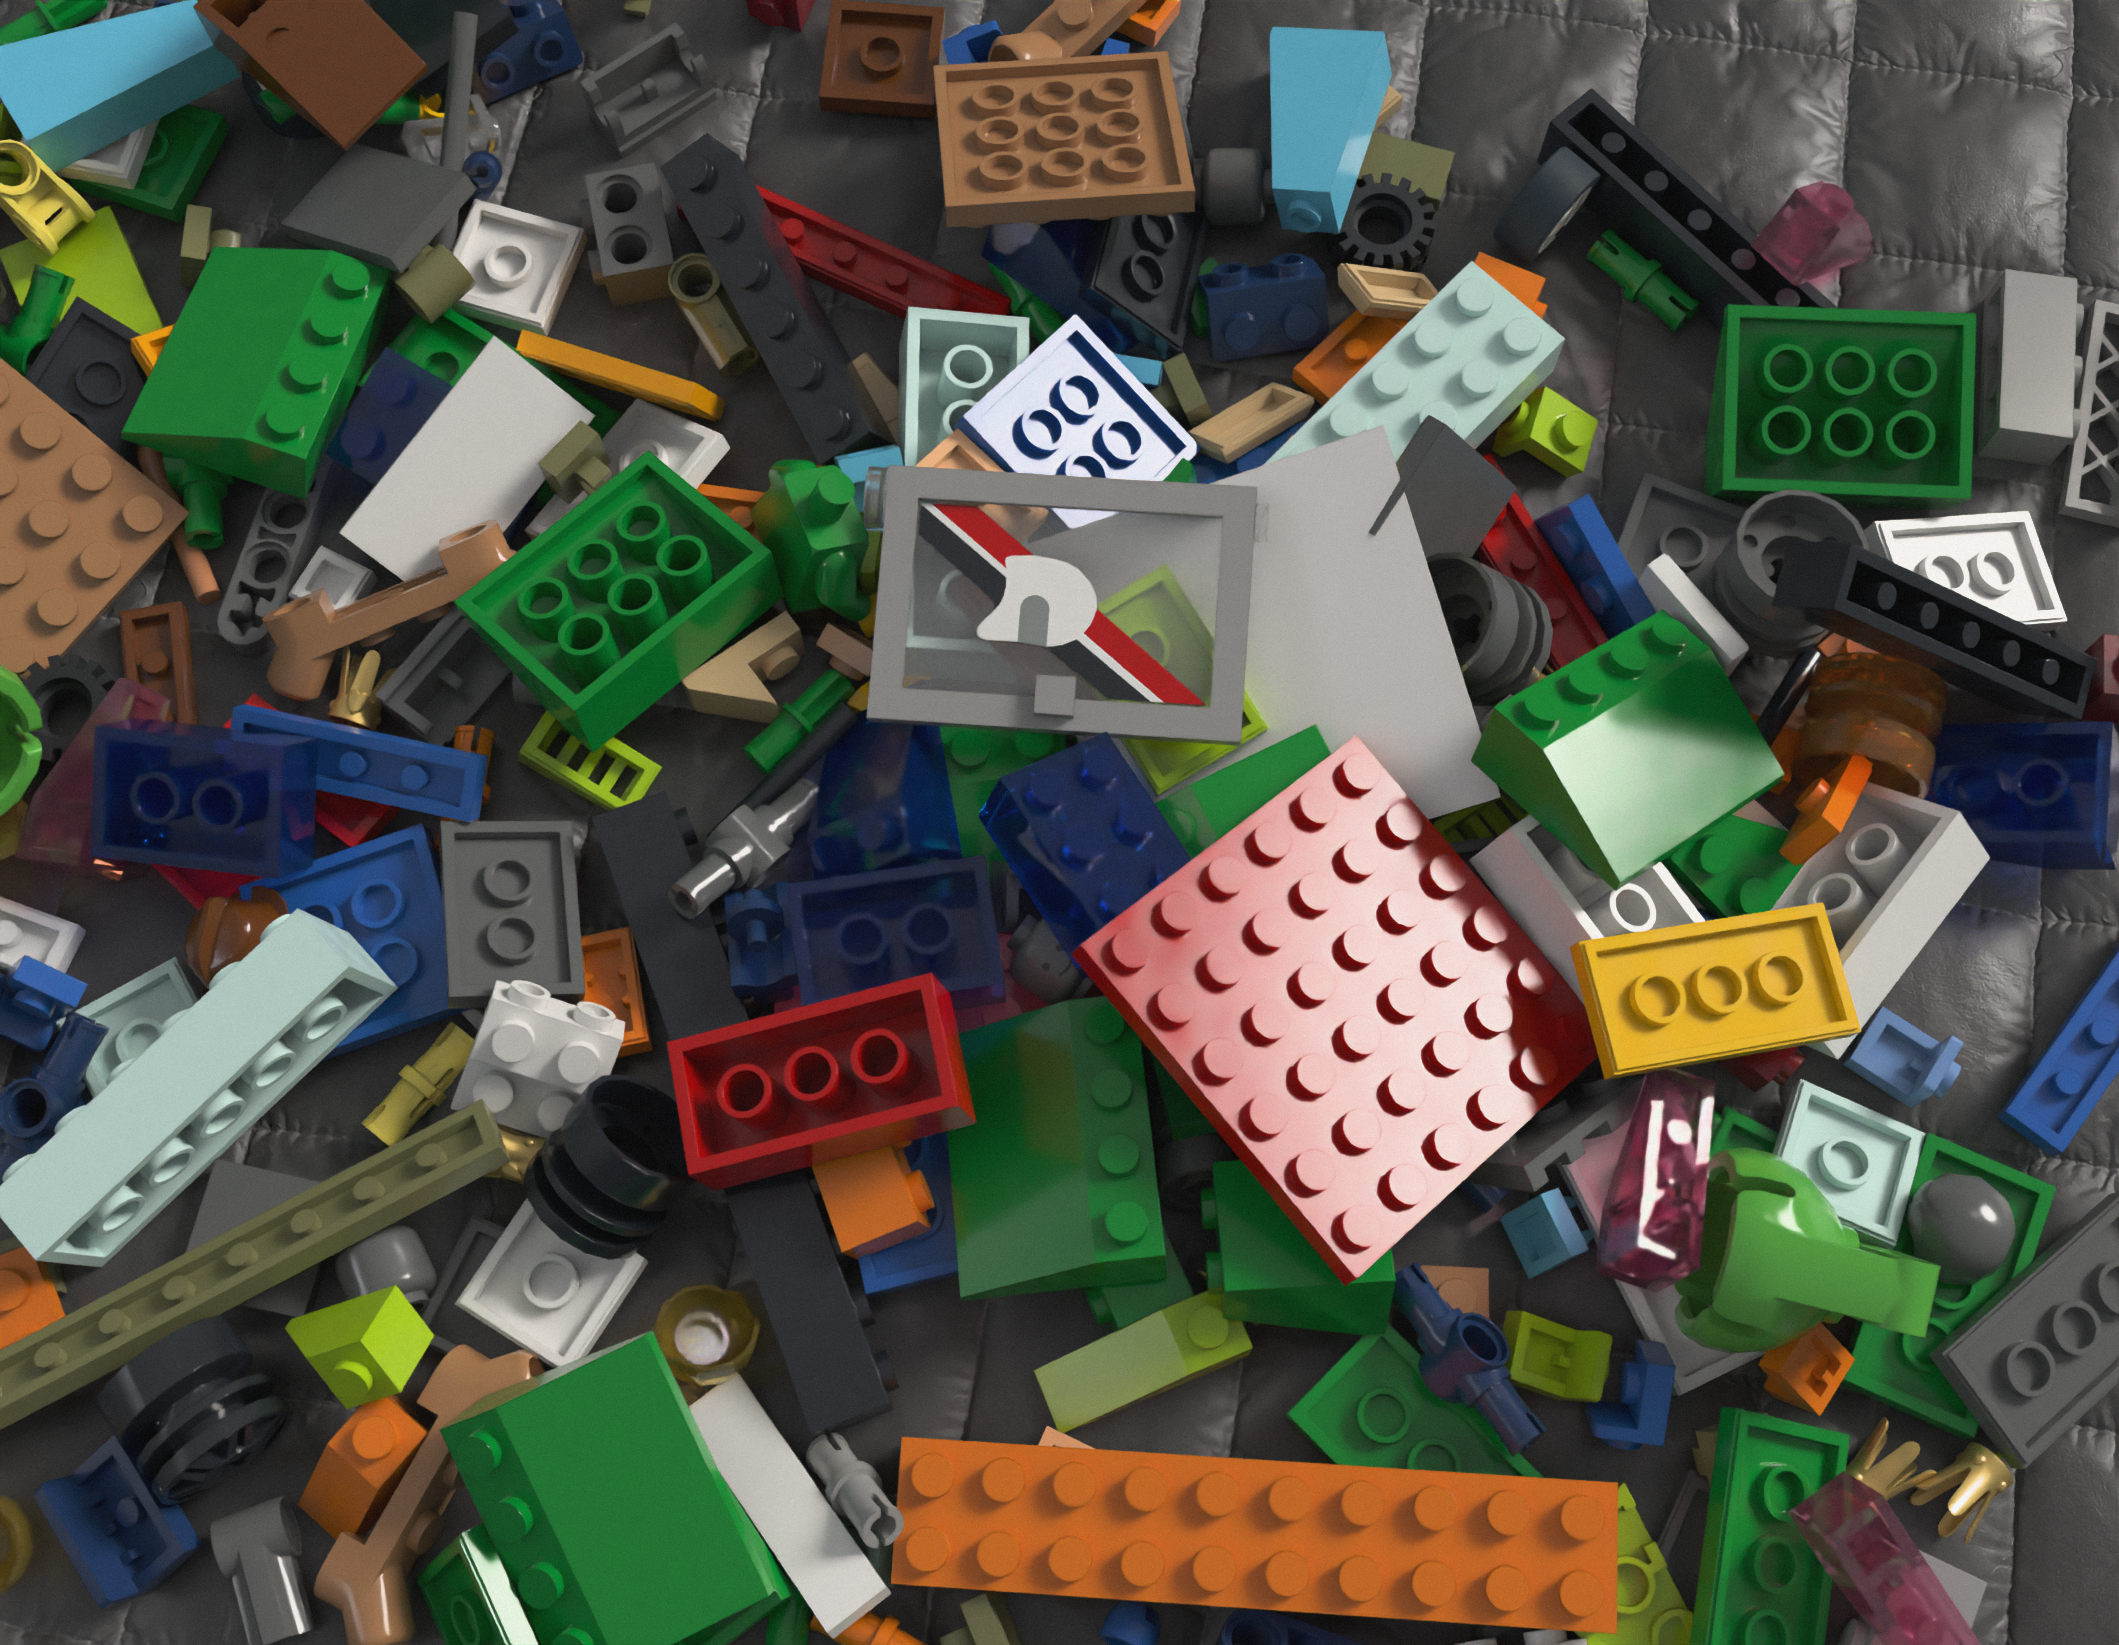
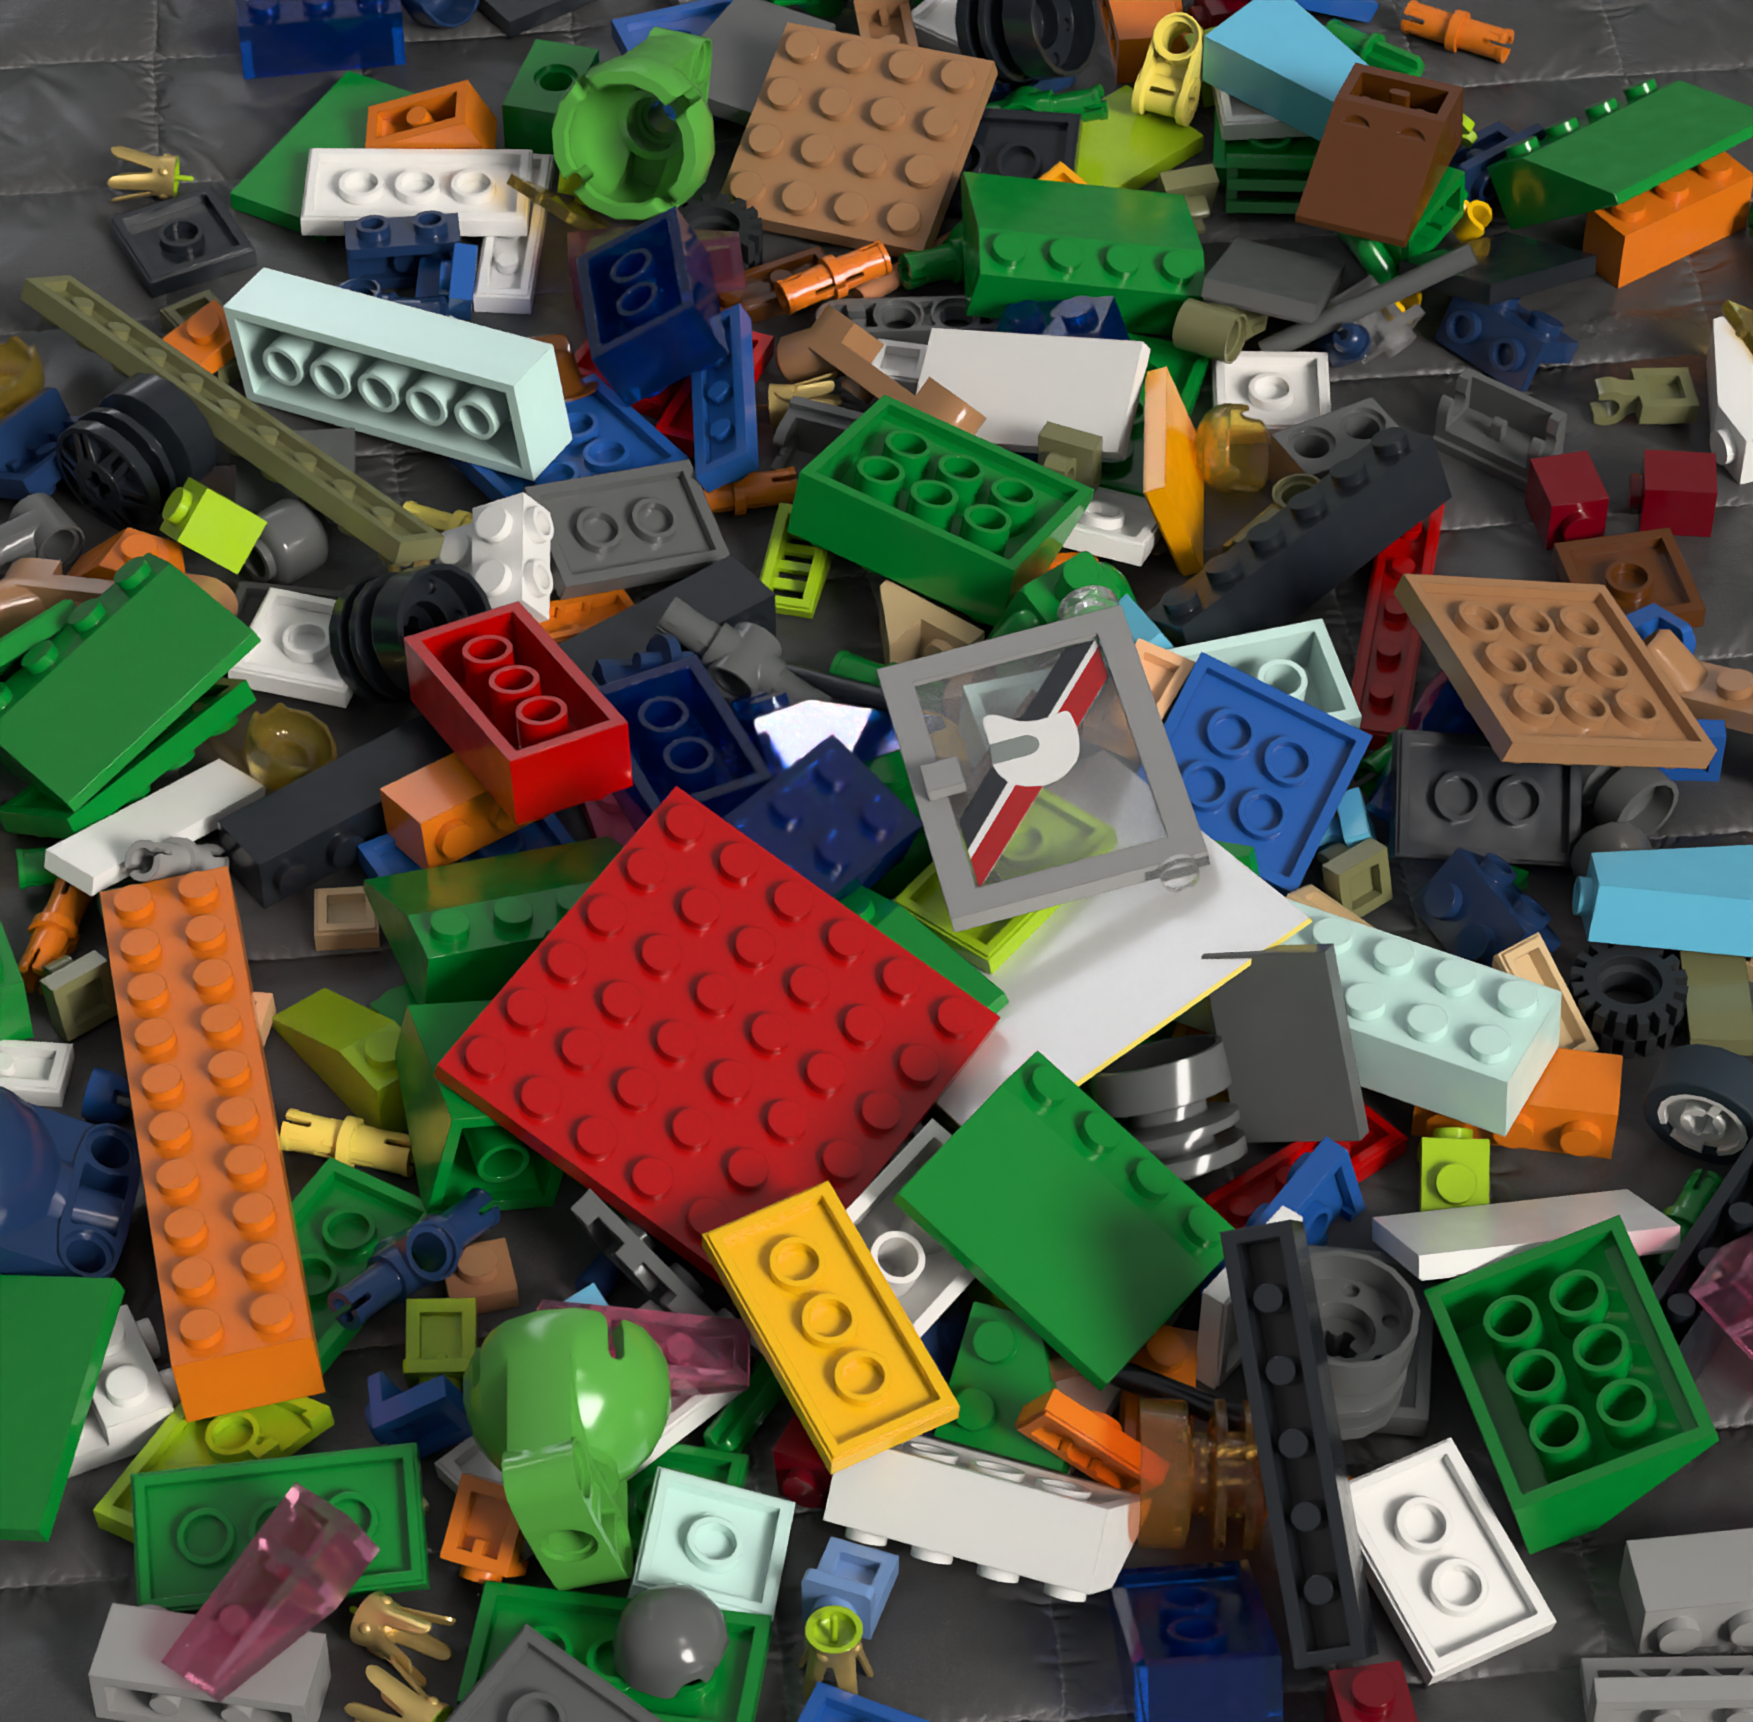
camera: 75 degrees right, 25 degrees down
(190, 609) = (833, 277): none -> orange pin
(229, 165) = (1264, 161): none -> green tile
(592, 321) = (1232, 450): none -> clear yellow hair
(762, 68) = (1566, 498): none -> dark red brick
(941, 1326) = (344, 919): none -> tan tile
(1256, 1390) = (347, 1142): none -> light yellow pin
(1654, 395) = (1472, 1237): none -> white tile
(1983, 1086) = (834, 1642): none -> piece

